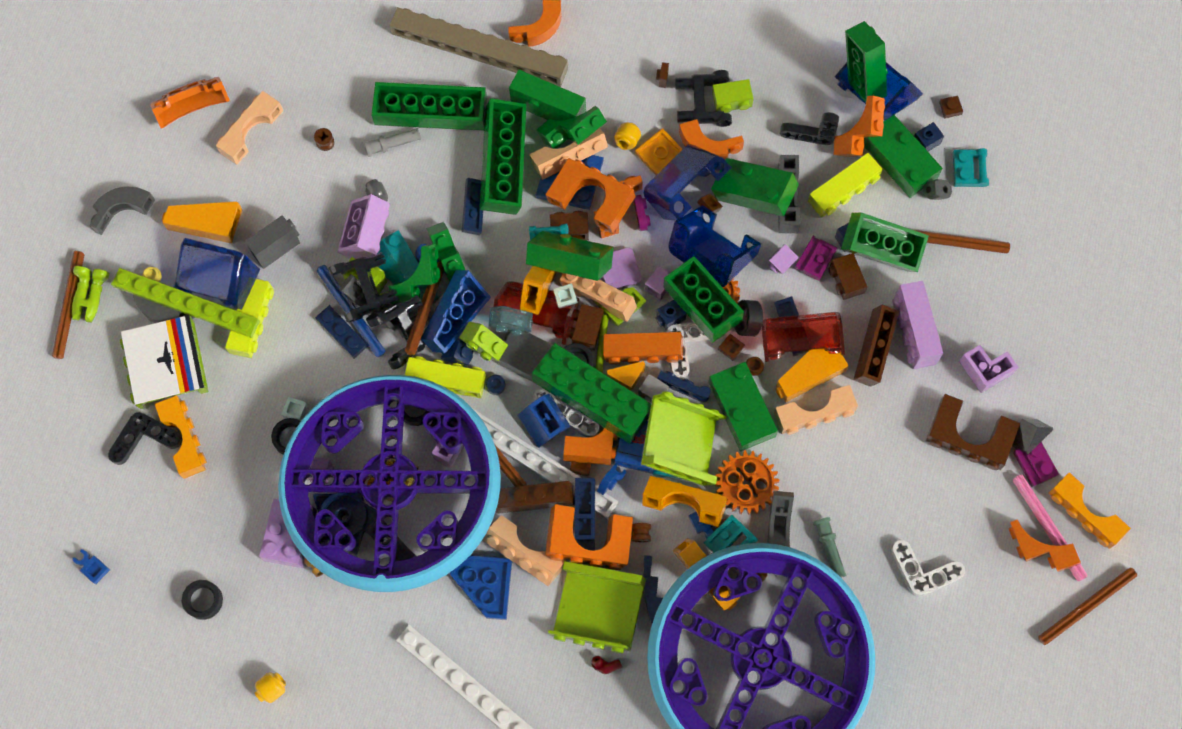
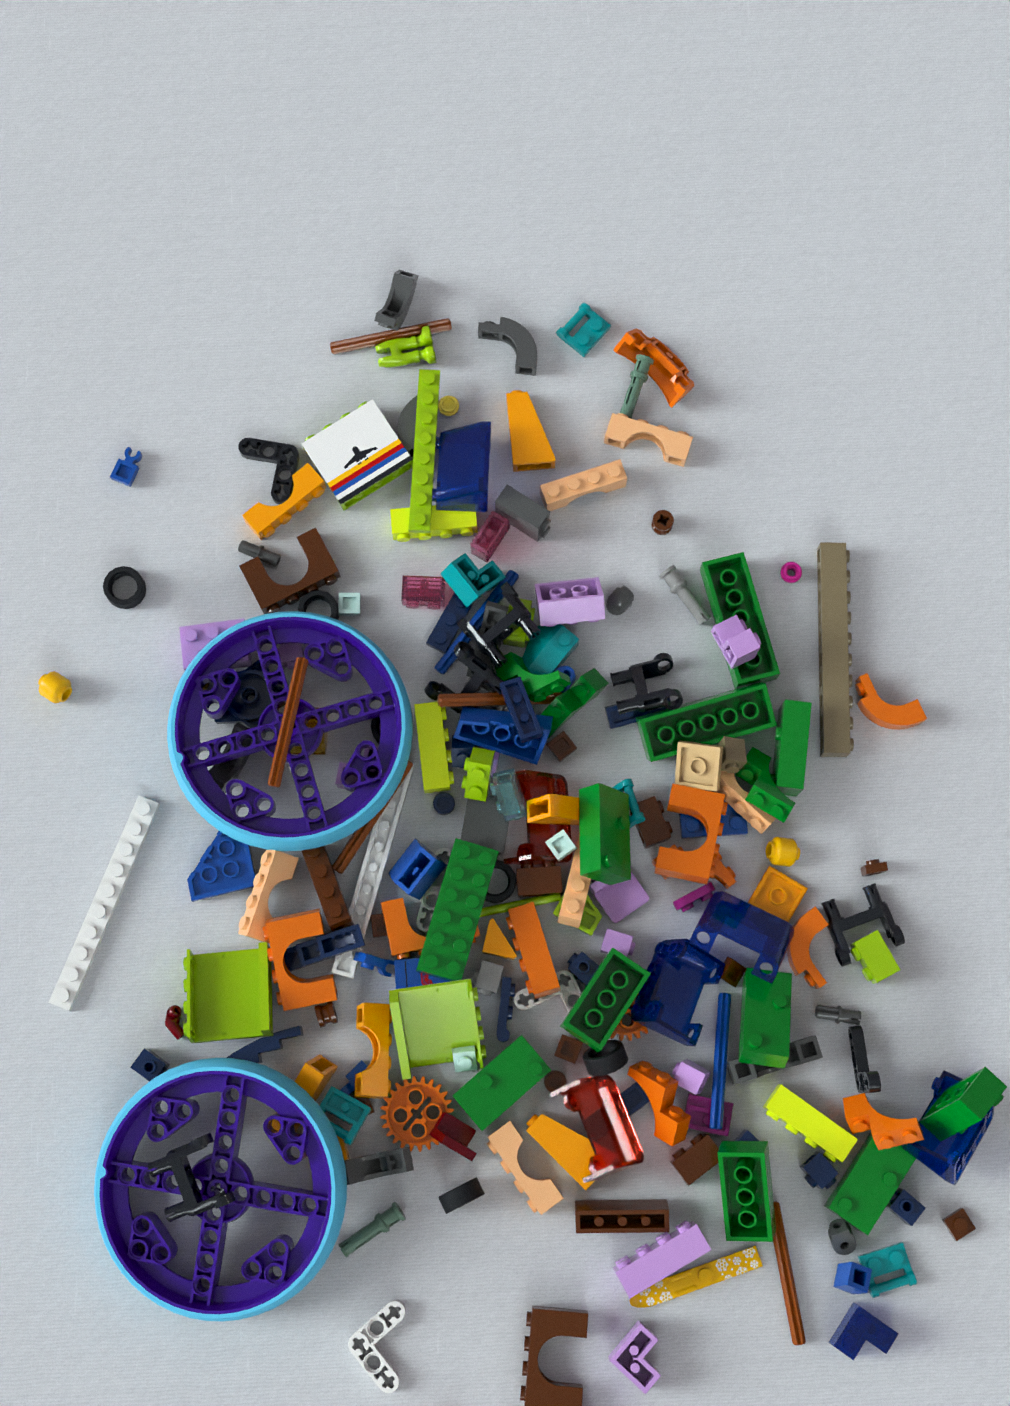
camera: 70 degrees right, 5 degrees up
(39, 286) = (398, 300): none -> dark grey arch
(138, 146) = (588, 334): none -> teal plate
(192, 117) = (638, 377): none -> sand green pin
(218, 472) = (263, 554): none -> dark grey axle
(260, 472) = (273, 595): none -> reddish brown arch
(266, 188) = (597, 479): none -> light nougat arch
(282, 275) = (489, 536): none -> clear pink brick
(307, 344) = (423, 592): none -> clear pink brick
(315, 300) = (469, 581): none -> teal brick
(384, 474) = (288, 722): none -> dark orange axle
(401, 54) = (795, 568): none -> dark pink plate
(443, 287) = (520, 710): none -> dark blue plate
(449, 108) = (736, 641): none -> lavender brick
(468, 195) = (643, 700): none -> black connector
(482, 274) = (561, 746): none -> reddish brown plate
(537, 144) = (733, 754): none -> dark tan brick
(538, 169) = (698, 765): none -> tan plate
(638, 695) = (149, 1064): none -> dark blue brick
(713, 430) = (464, 1058): none -> light aqua plate
(730, 682) = (192, 1200): none -> black connector
(768, 138) = (838, 1014): none -> dark grey axle
(773, 455) = (454, 1135): none -> dark red panel
(777, 234) = (720, 1061): none -> blue axle
(785, 283) = (660, 1087): none -> orange arch
(824, 464) = (461, 1195): none -> black tyre
(883, 190) = (819, 1171): none -> dark blue brick
(938, 303) = (698, 1277): none -> yellow piece
(971, 191) = (852, 1278): none -> blue brick
(1009, 199) = (857, 1328): none -> clear blue brick

